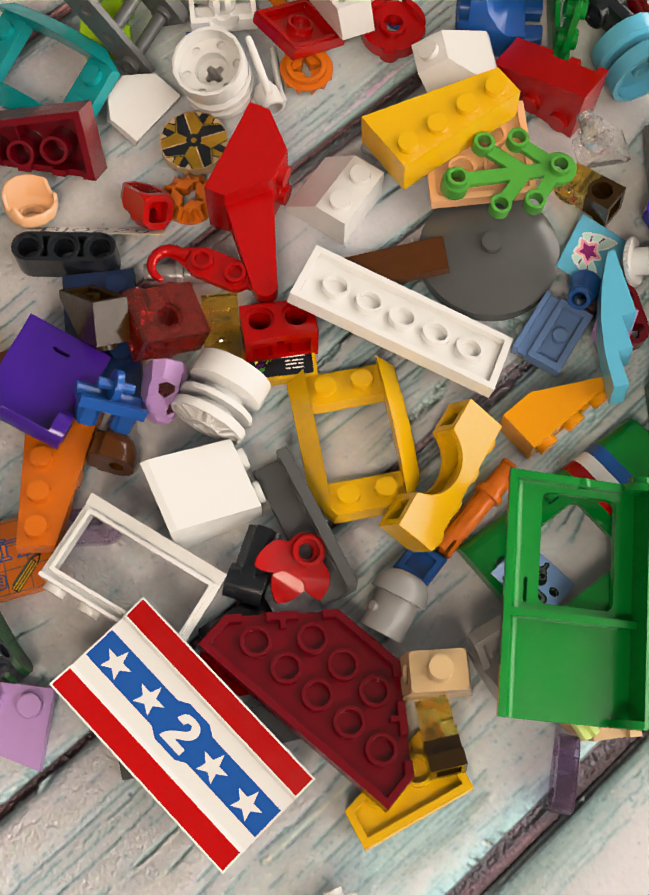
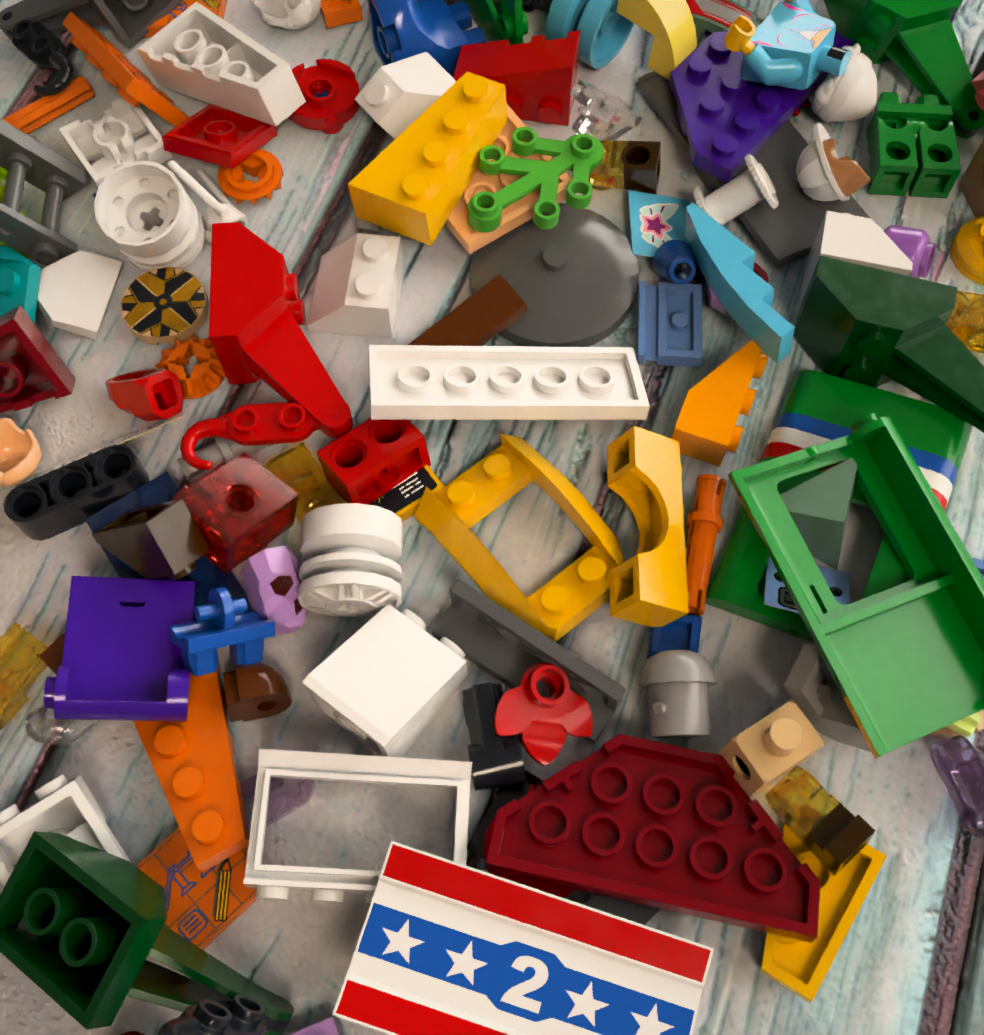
camera: 25 degrees left, 5 degrees down
(573, 529) = (822, 510): none -> sand green slope

